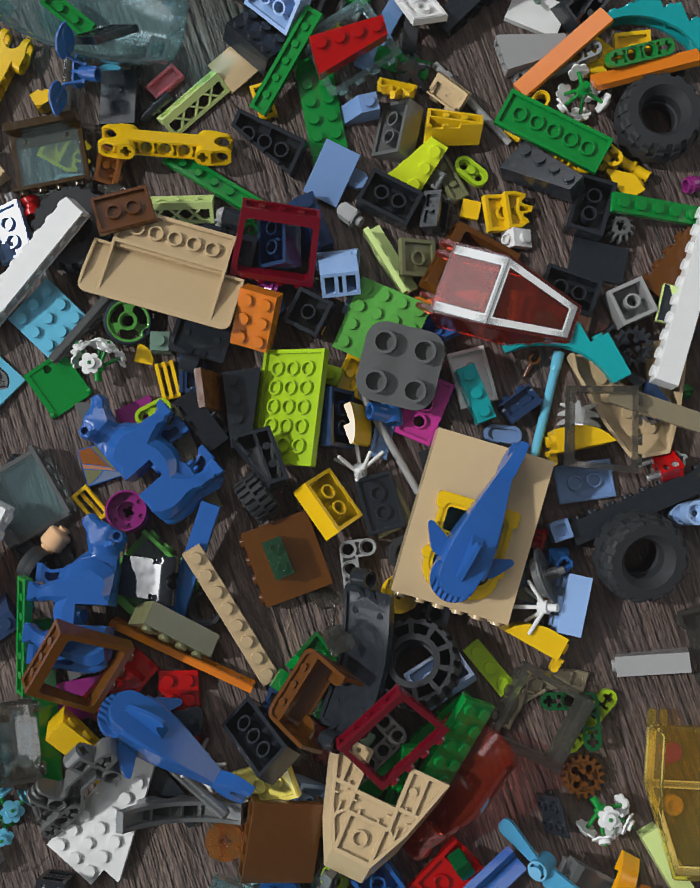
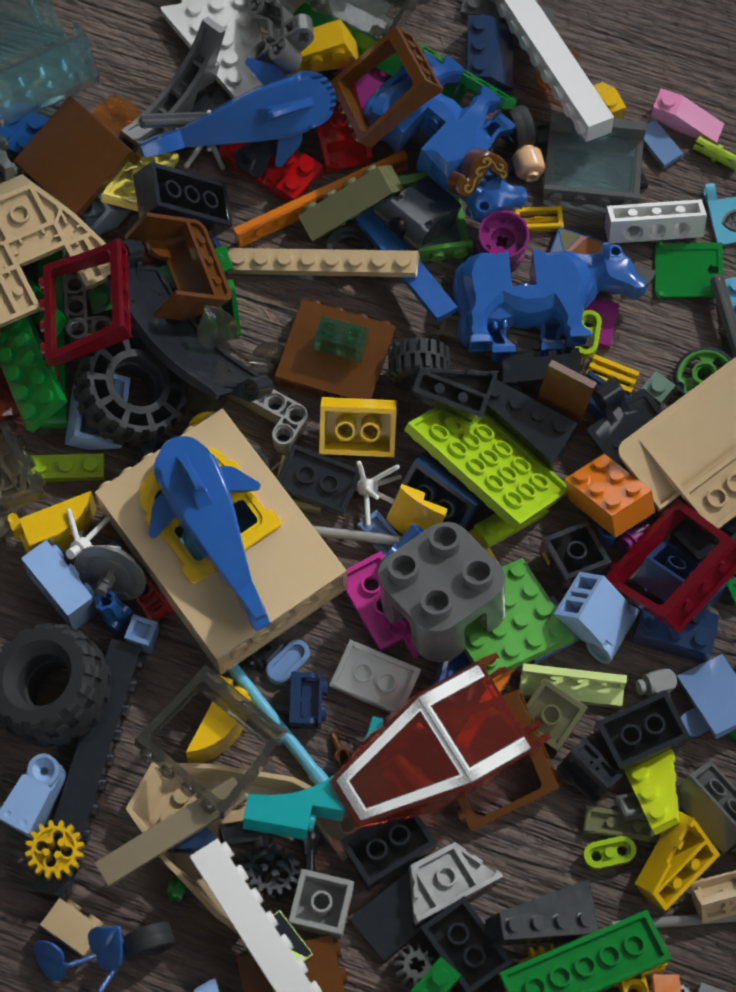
camera: 125 degrees right, 15 degrees down
(39, 426) = (655, 221): none -> white brick
(95, 362) = (682, 302): white plant -> none
(97, 558) = (473, 169): none -> reddish brown animal
(144, 355) = (658, 365): yellow tile -> none
(470, 210) = (565, 819): yellow tile -> none
(474, 394) = (353, 656): teal brick -> none
(504, 211) = (533, 853): yellow plate -> none
(517, 238) = (491, 843): white bracket -> none
(560, 245) = (445, 878): none -> light grey wing
(582, 414) = (240, 751): light grey piece -> none
(583, 484) = (163, 691): medium blue tile -> none
(666, 466) = (113, 799): red piece -> none

